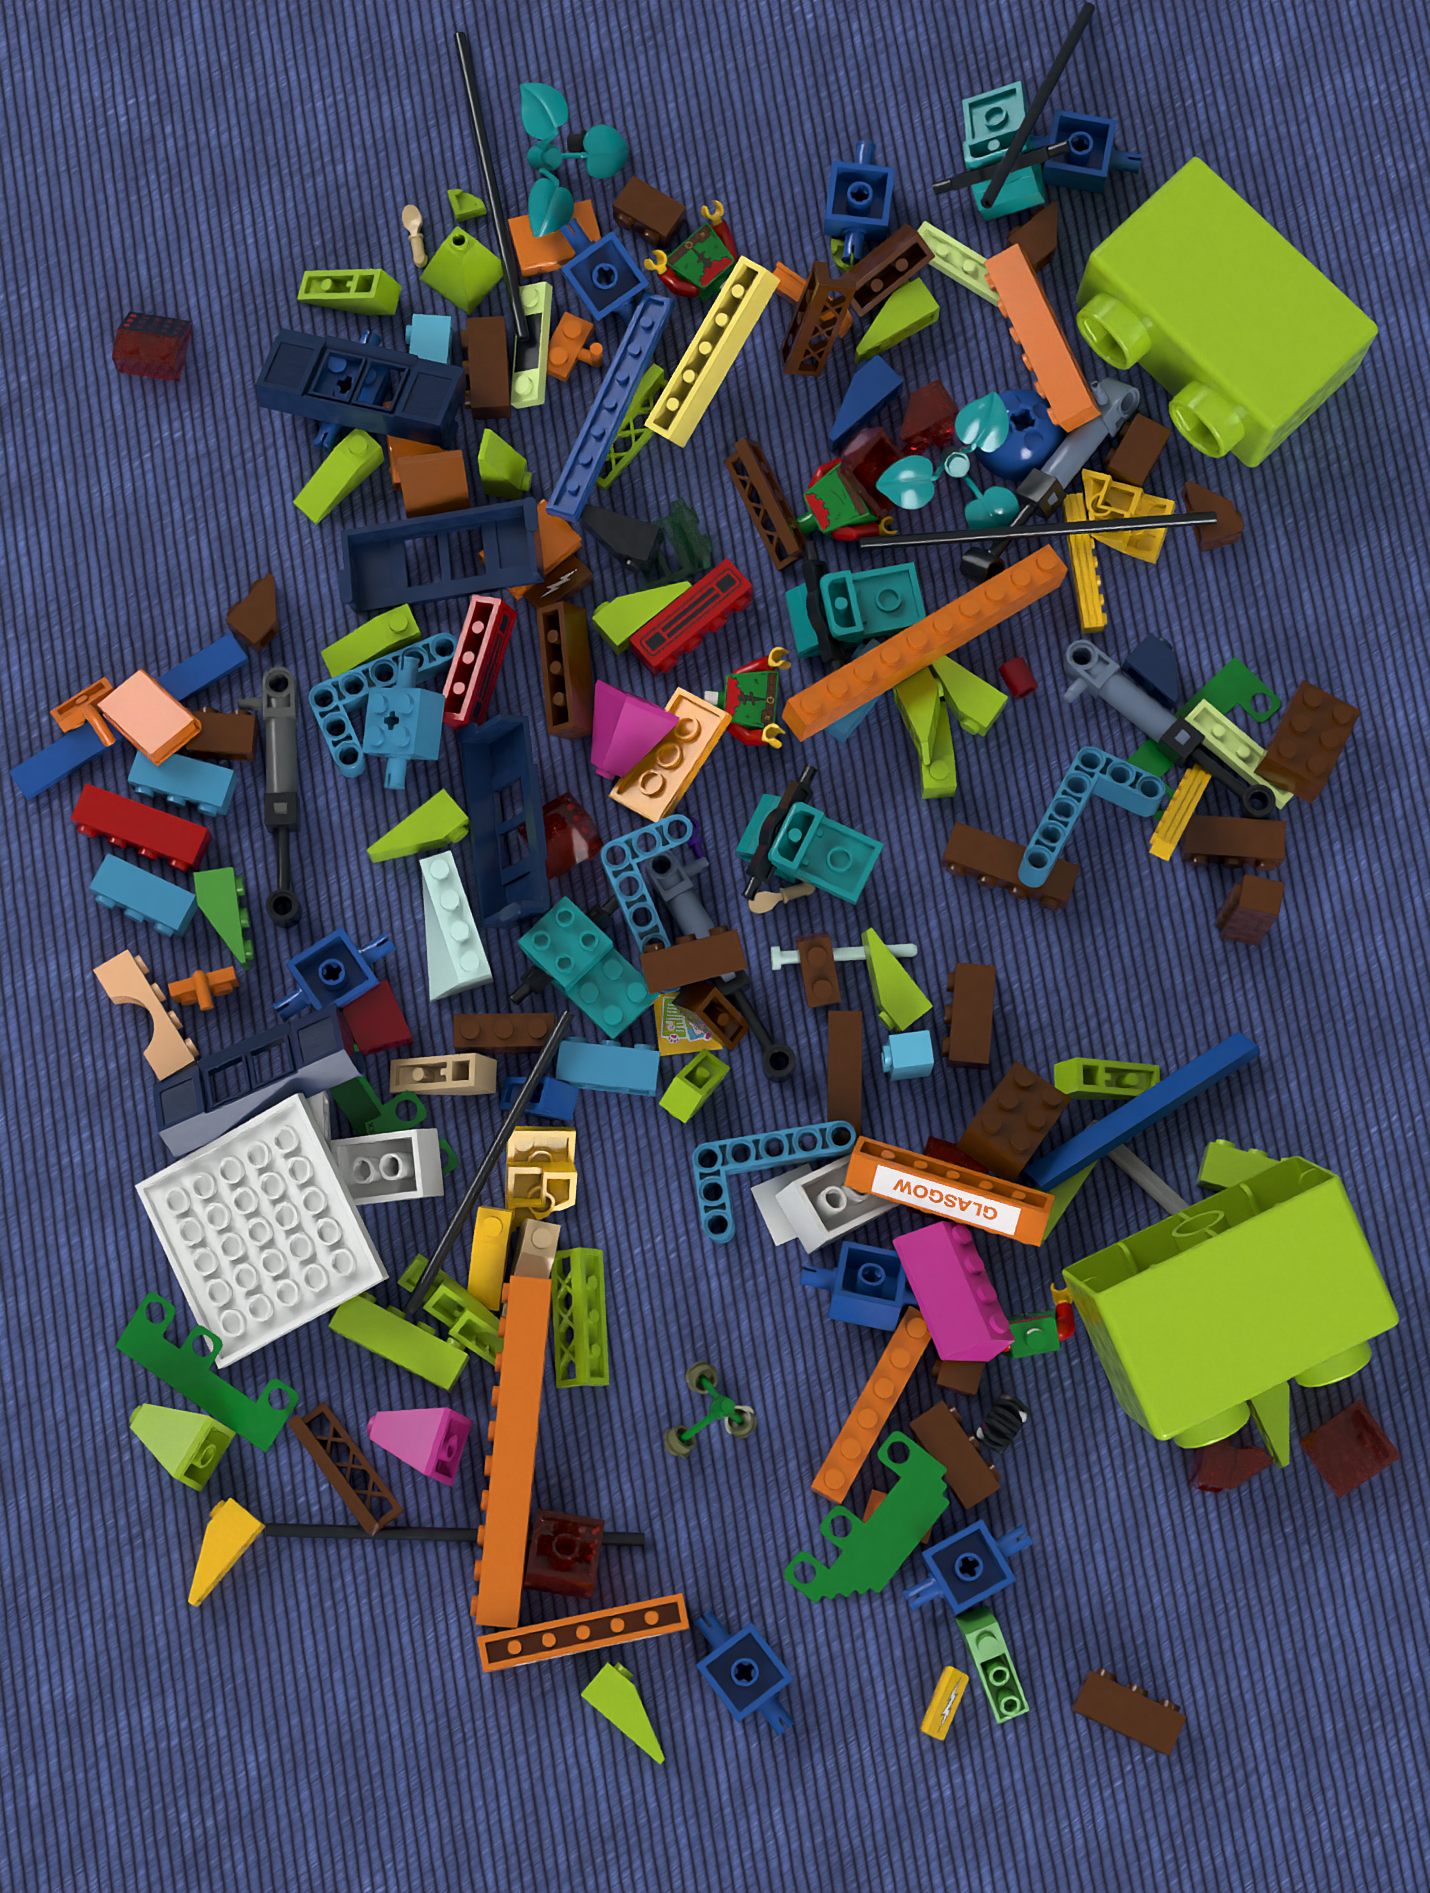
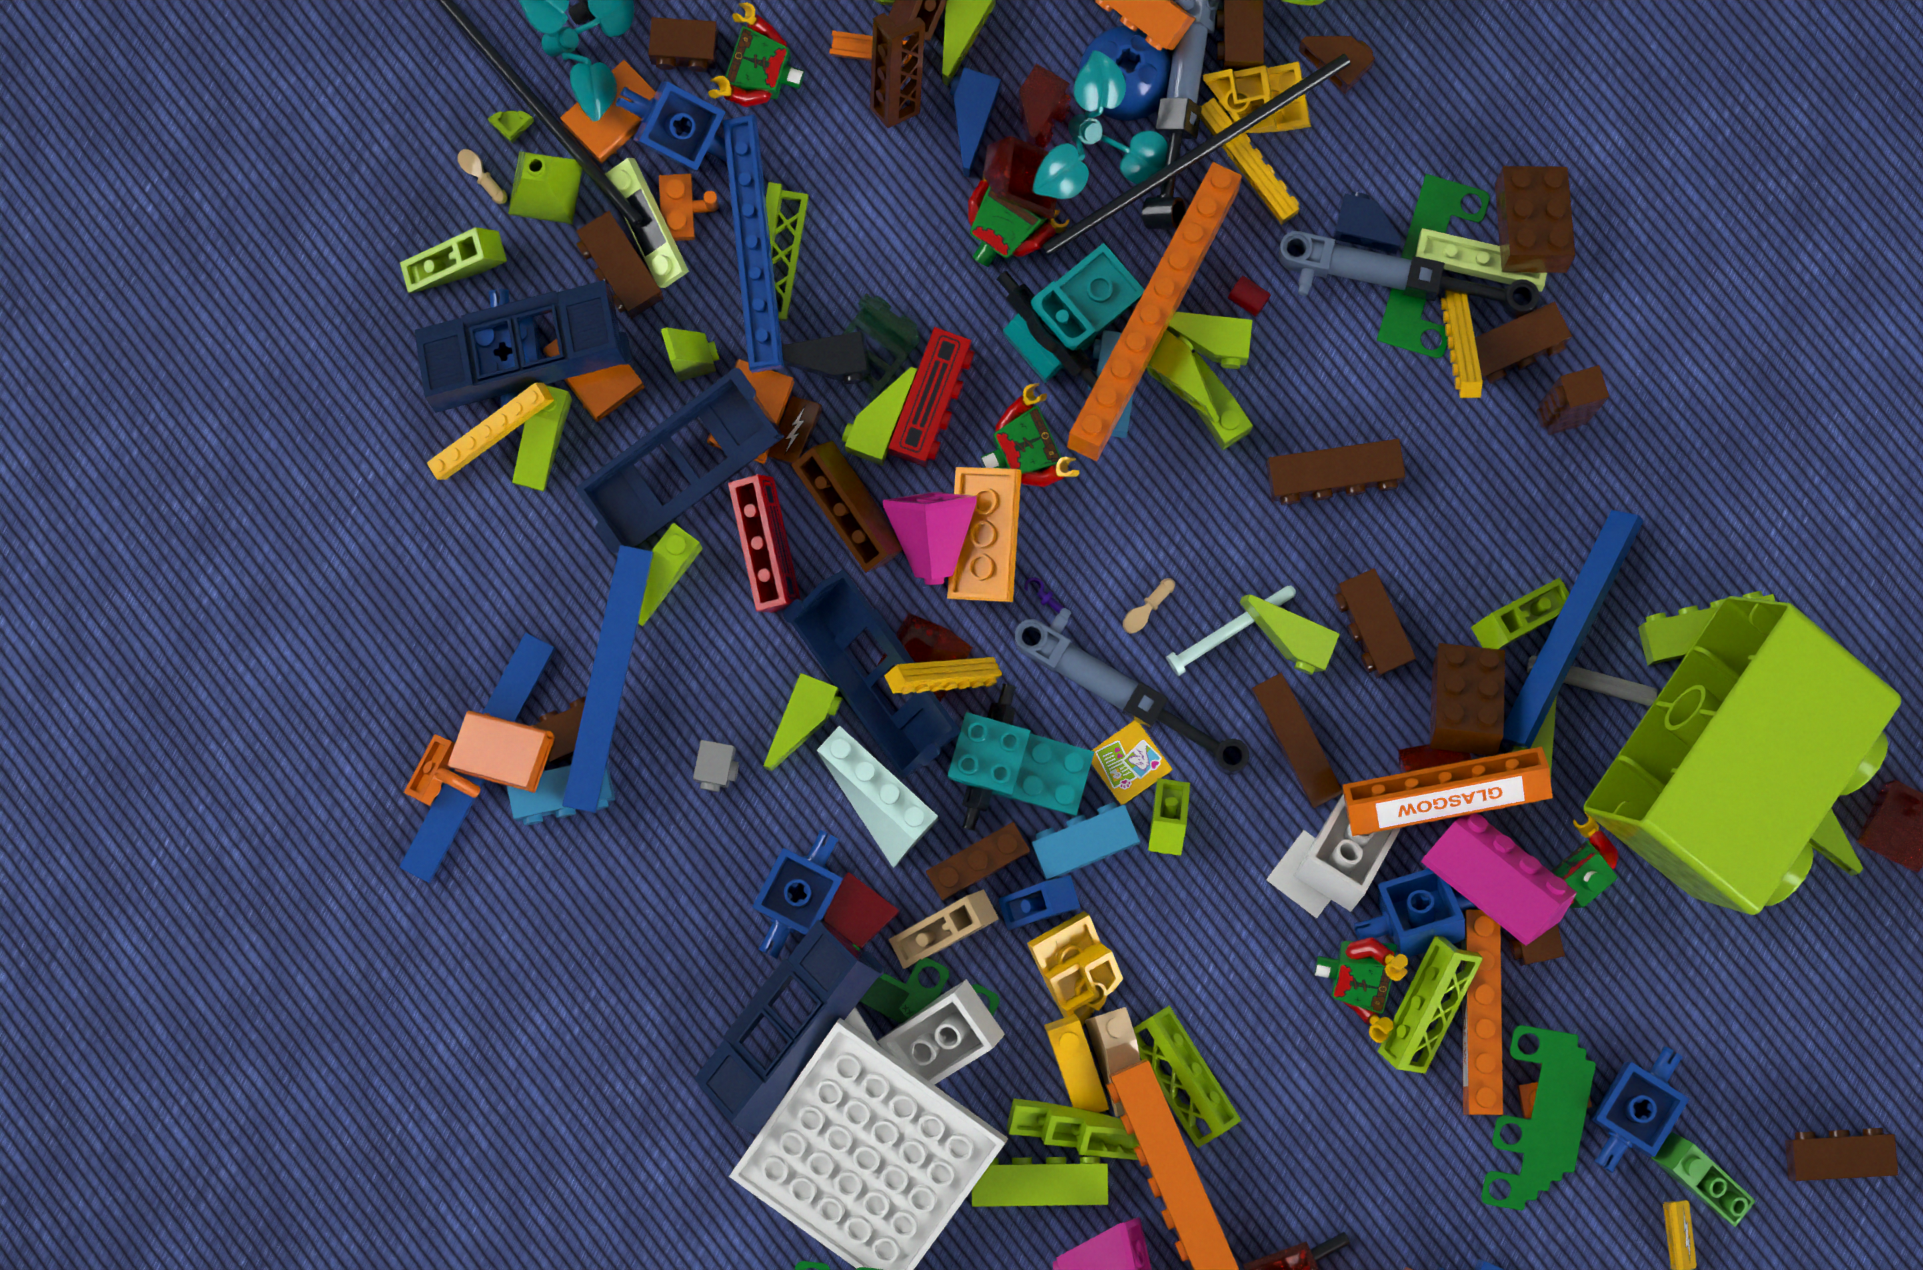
camera: 25 degrees left, 5 degrees up
(126, 983) = (615, 999): light nougat arch -> none
(141, 828) = (548, 853): red brick -> none
(143, 896) = (586, 914): dark azure brick -> none
(151, 346) = (301, 406): clear red slope -> none
(202, 985) = (686, 968): orange plate -> none
(220, 902) = (659, 884): bright green slope -> none
(257, 616) = (542, 605): reddish brown slope -> none
(274, 704) = (607, 679): none -> blue tile
(281, 795) = (658, 759): piece -> none
(296, 446) = (490, 431): none -> yellow piece
(326, 830) = (715, 766): none -> light grey brick
(367, 676) = (684, 616): dark azure beam -> none
(403, 723) = (732, 633): dark azure brick -> none
(430, 337) = (552, 267): medium azure brick -> none
(434, 483) = (639, 403): dark orange slope -> none
(488, 1162) = (1032, 985): black piece -> none
(557, 850) = (943, 675): none -> yellow piece
(629, 868) = (1031, 676): dark azure beam -> none
(691, 959) = (1110, 709): reddish brown brick -> none
(711, 1013) = (1148, 744): reddish brown slope -> none
(712, 351) = (818, 145): light yellow brick -> none
(738, 1419) = (1369, 1090): olive plant -> none
(758, 1160) = (1262, 852): dark azure beam -> none
(773, 503) = (945, 252): reddish brown fence -> none
(784, 1317) = (1364, 978): none -> torso
(801, 843) = (1148, 550): teal piece -> none
(817, 969) = (1221, 655): reddish brown brick -> none
(823, 1369) = (1423, 1005): none -> lime fence
(908, 1055) = (1342, 689): medium azure brick -> none
(945, 1440) = (1562, 1011): reddish brown brick -> none
(1002, 1423) = (1600, 967): black gear -> none
(1099, 781) = (1363, 387): dark azure beam -> none
(1222, 1467) = (1814, 901): clear red slope -> none

